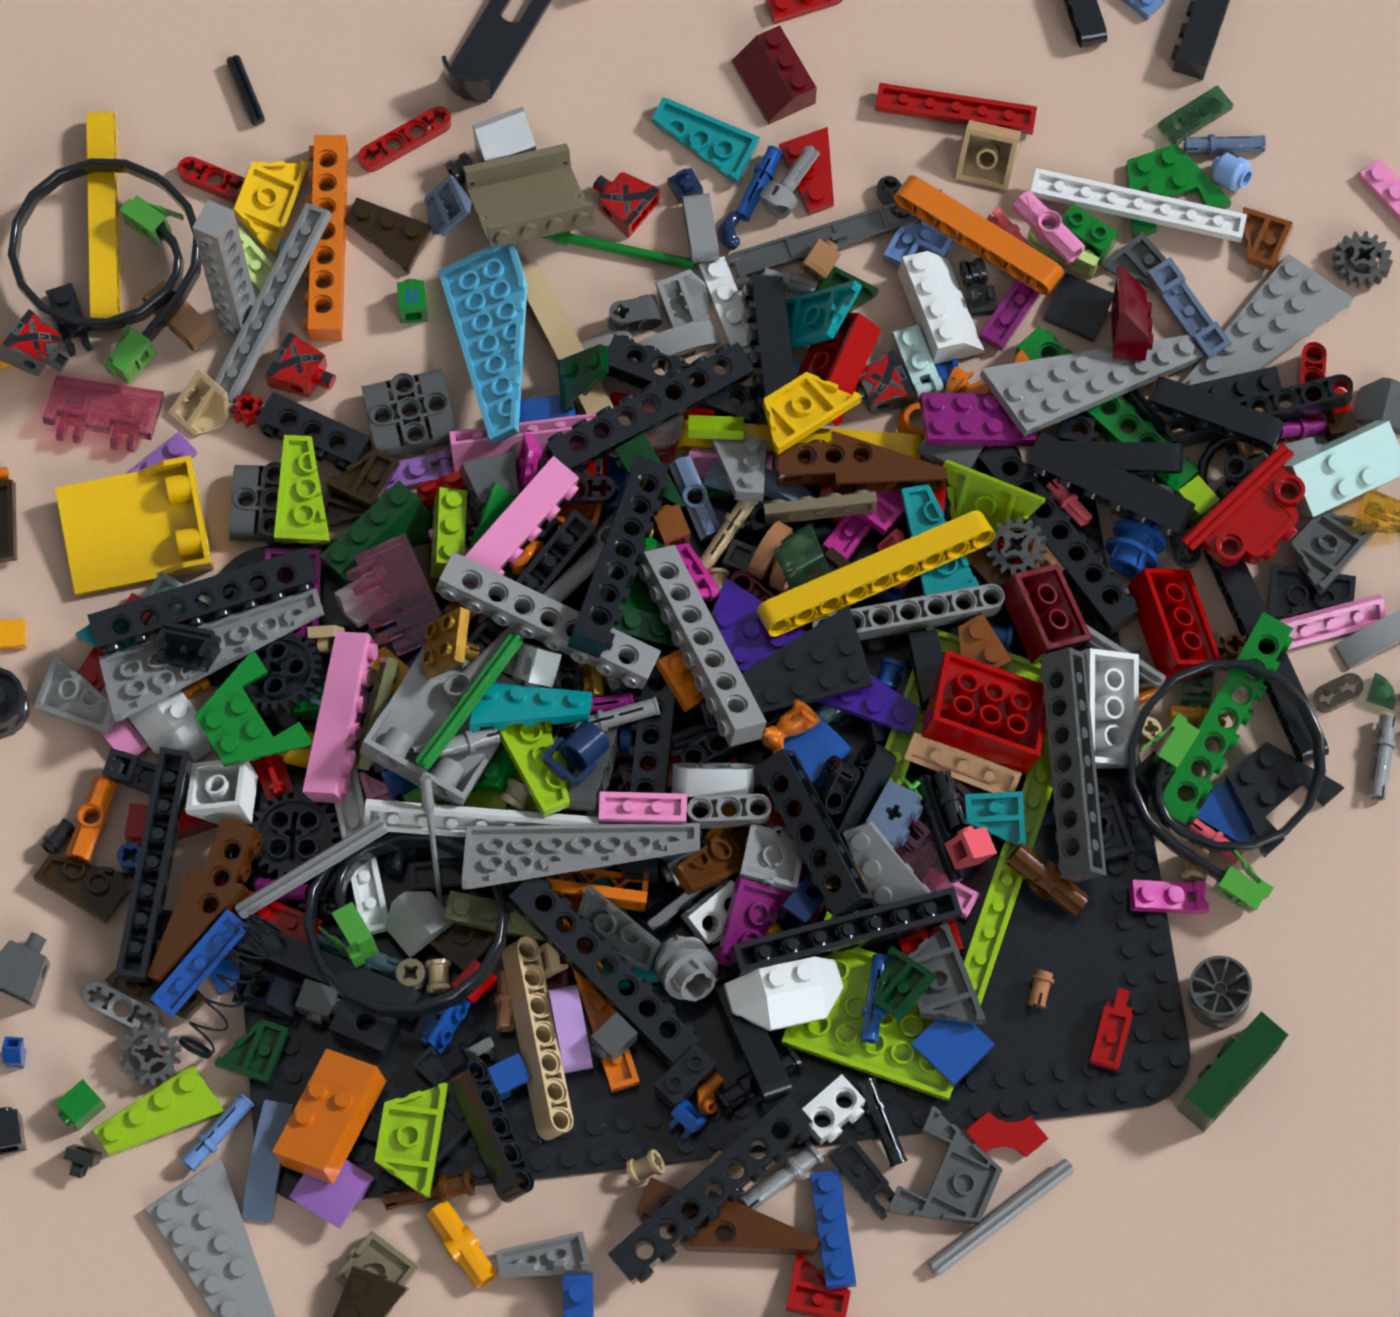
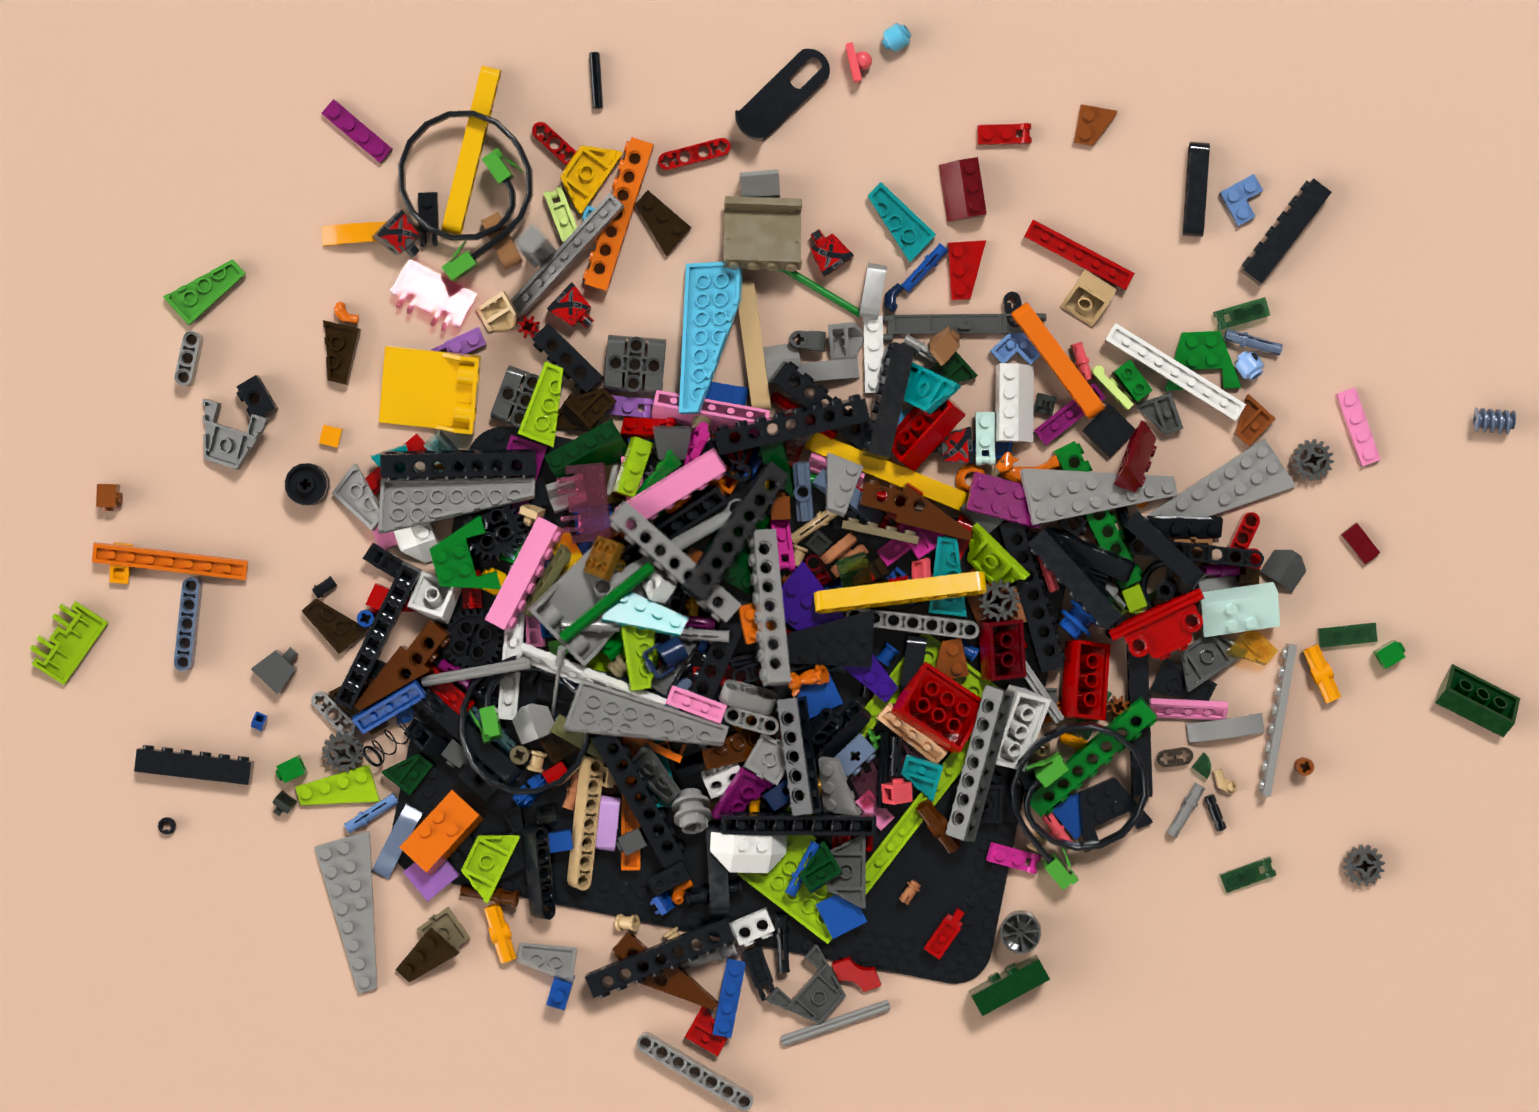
camera: 20 degrees right, 20 degrees up
(96, 804) = (341, 594): orange piece -> none
(186, 646) = (438, 498): black hinge -> none
(412, 301) = (661, 281): green brick -> none
(447, 206) = (706, 220): sand blue slope -> none
(455, 167) = (724, 190): black wheel -> none
(580, 374) = (755, 381): dark green wing -> none
(684, 184) = (874, 252): dark blue tile -> none
(716, 427) = (832, 447): lime tile -> none
(781, 194) = (934, 286): light grey piece -> none
(804, 408) = (891, 462): yellow wing -> none
(973, 272) = (1048, 383): black wheel -> none
(1037, 216) = (1110, 386): bright pink piece -> none
(1187, 309) = (1180, 460): sand blue slope -> none

